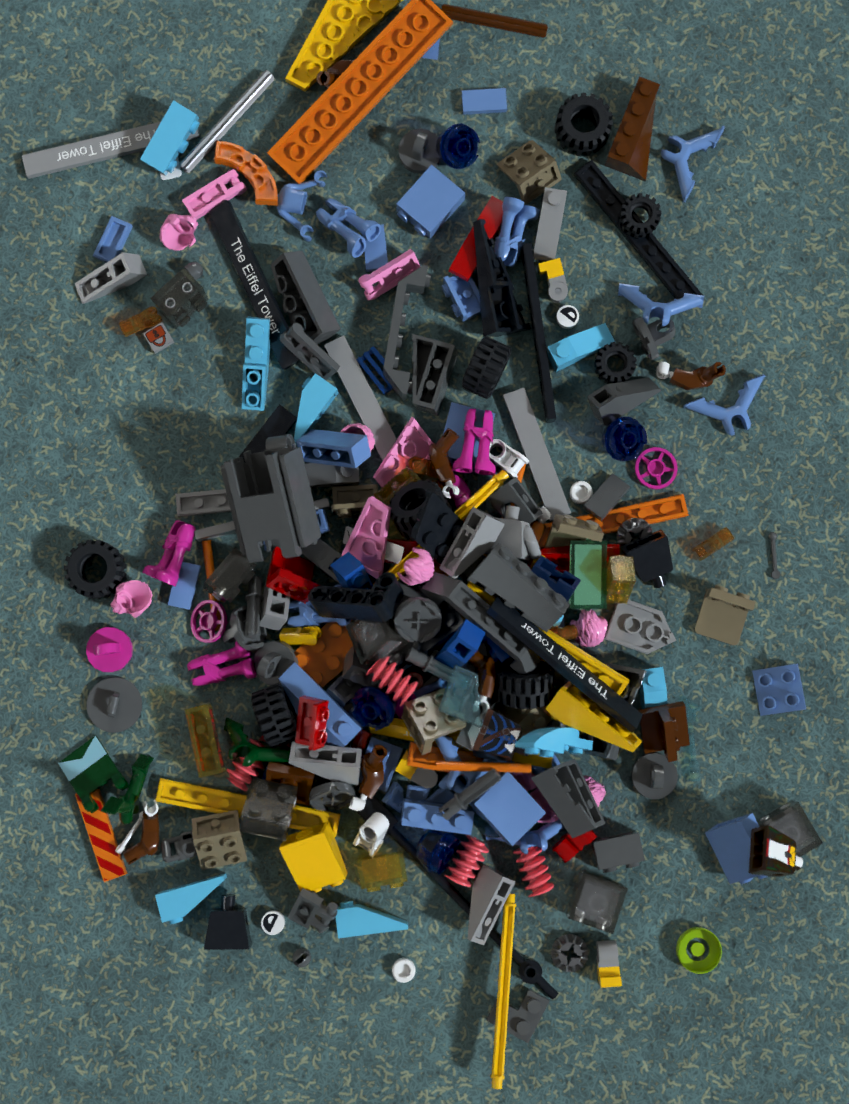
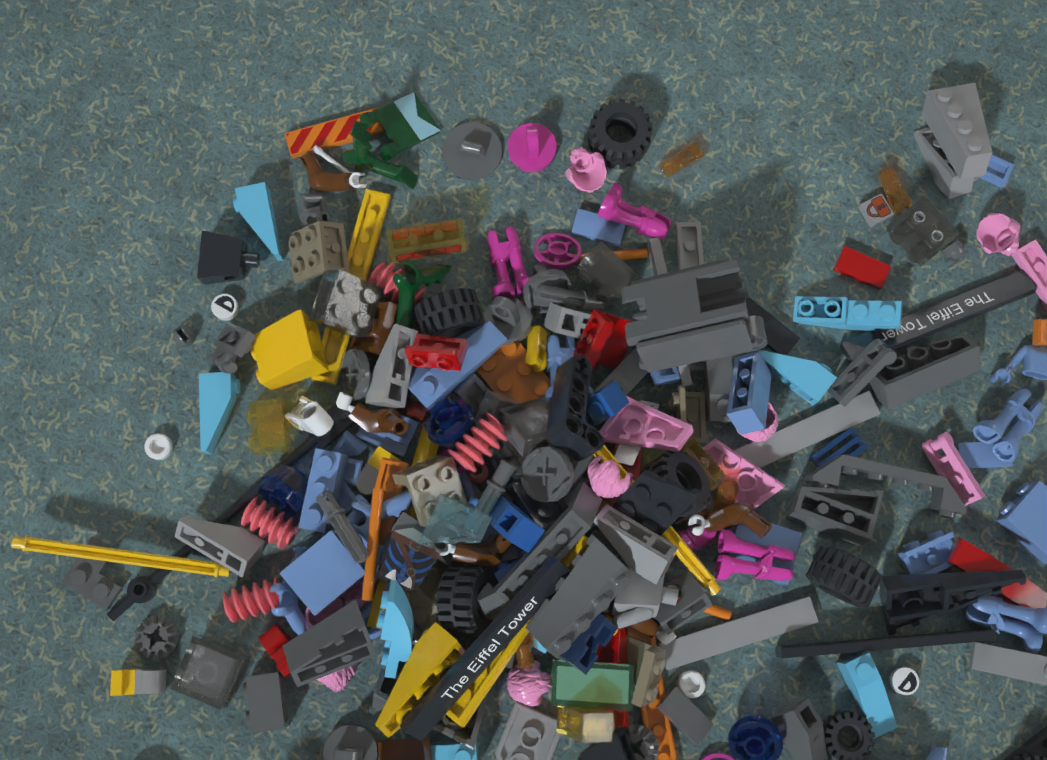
camera: 90 degrees right, 5 degrees down
(81, 265) = (959, 128): none -> light grey wedge
(118, 514) = (680, 161): none -> clear orange bar
(212, 350) = (862, 268): none -> red tile
(509, 460) = (731, 598): white piece -> none
(556, 279) = (950, 669): leg -> none

